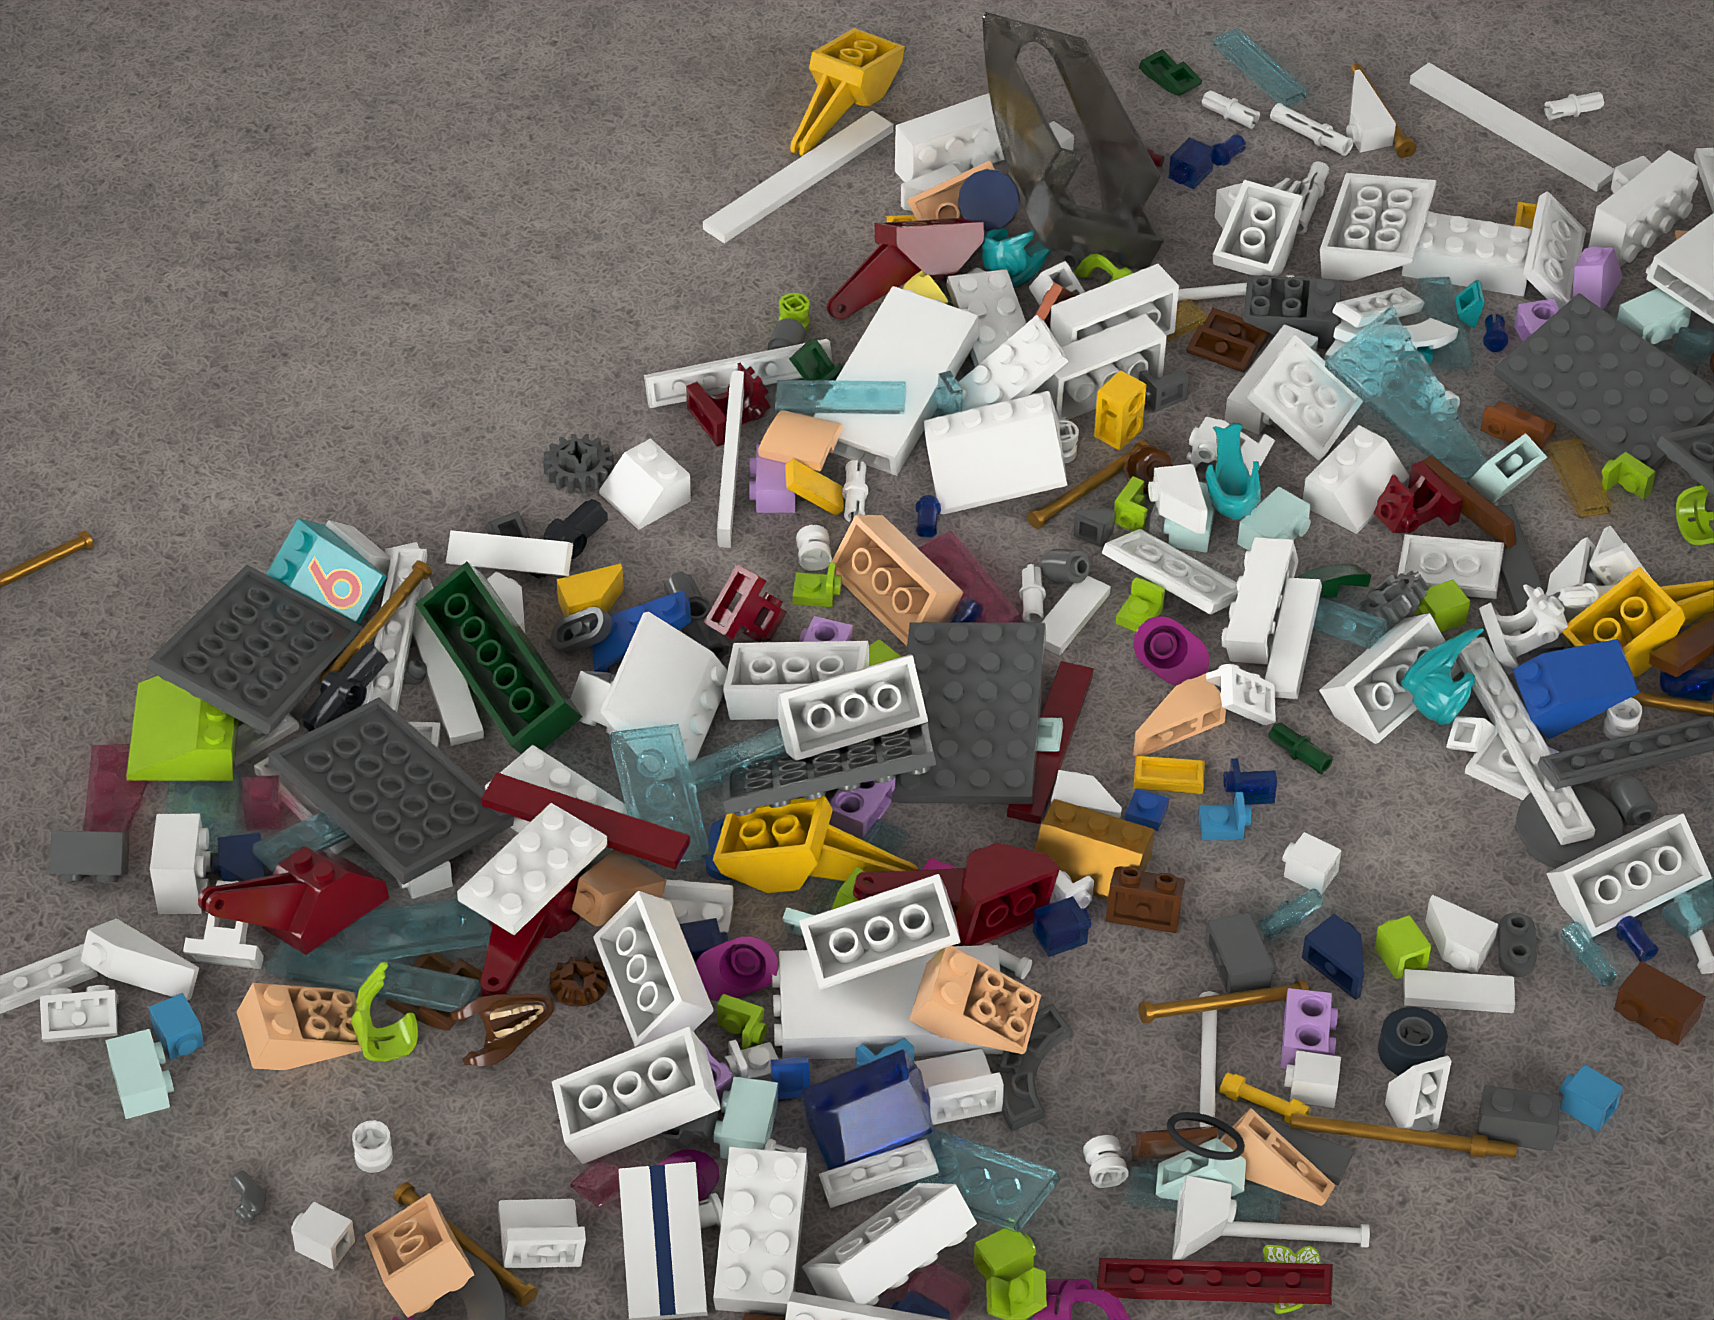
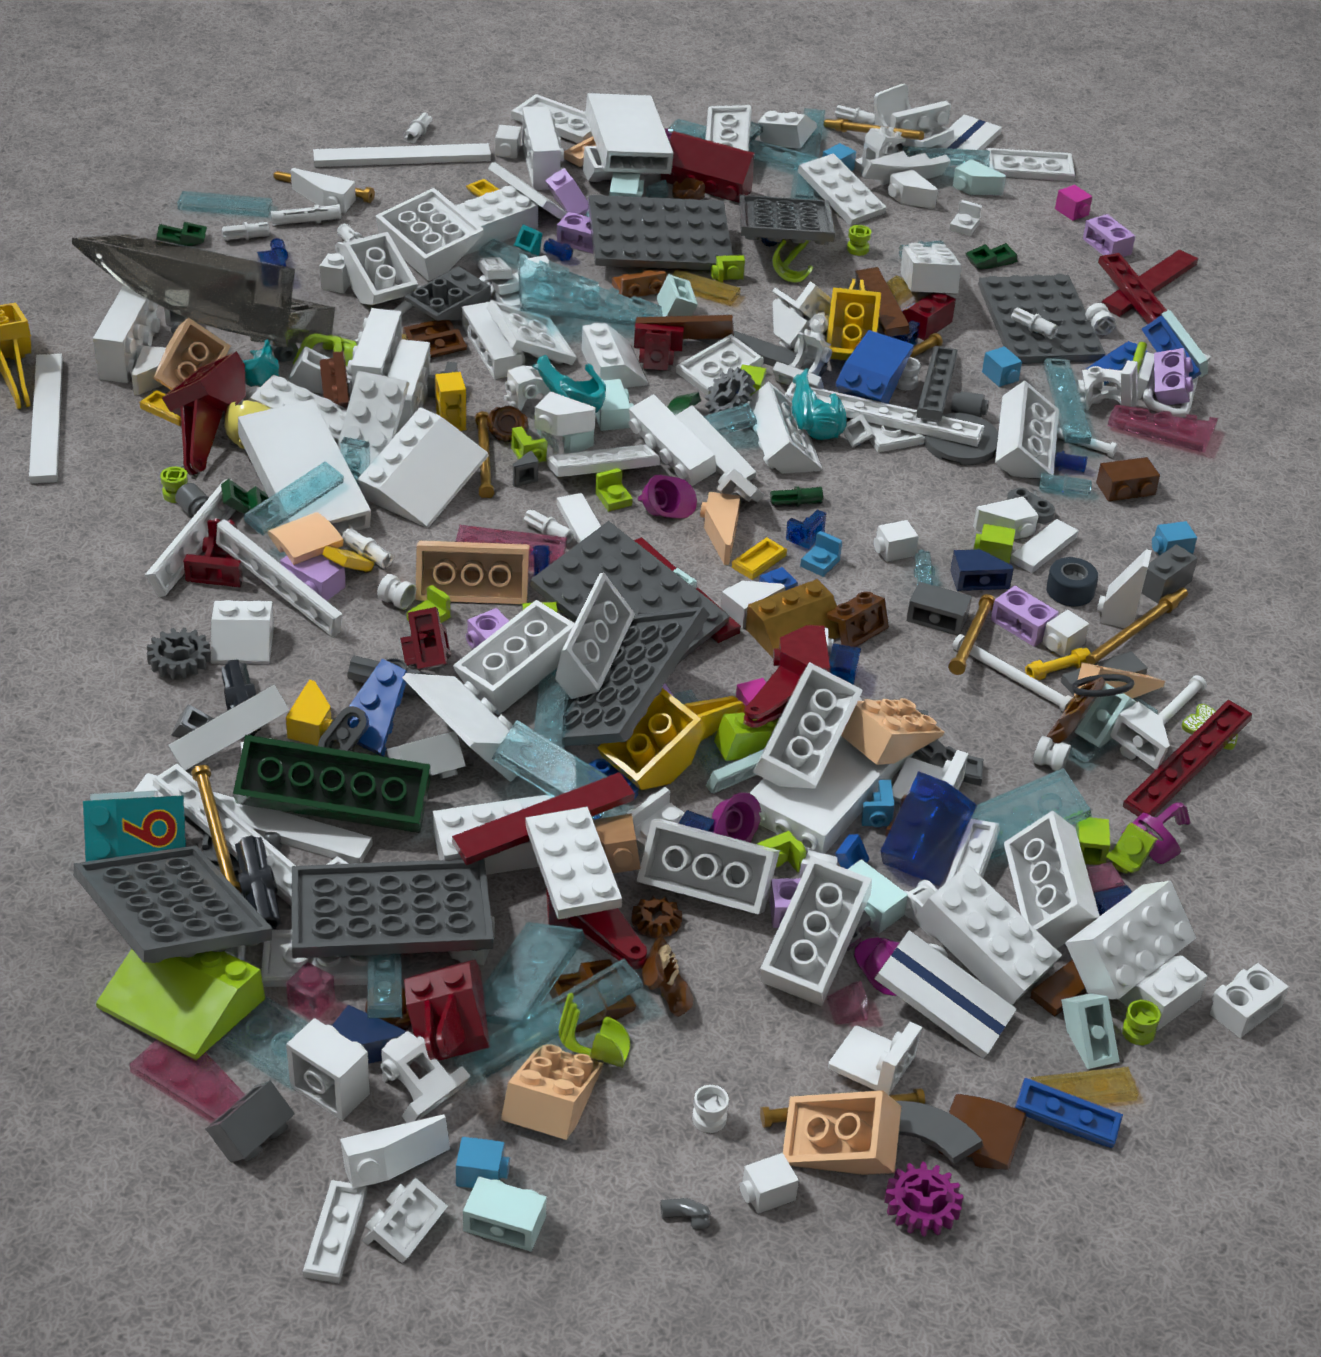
camera: 55 degrees left, 5 degrees down
(928, 510) = (427, 530): clear blue pin -> none
(989, 198) = (209, 341): dark blue tile -> none
(1065, 565) = (548, 497): dark grey brick -> none

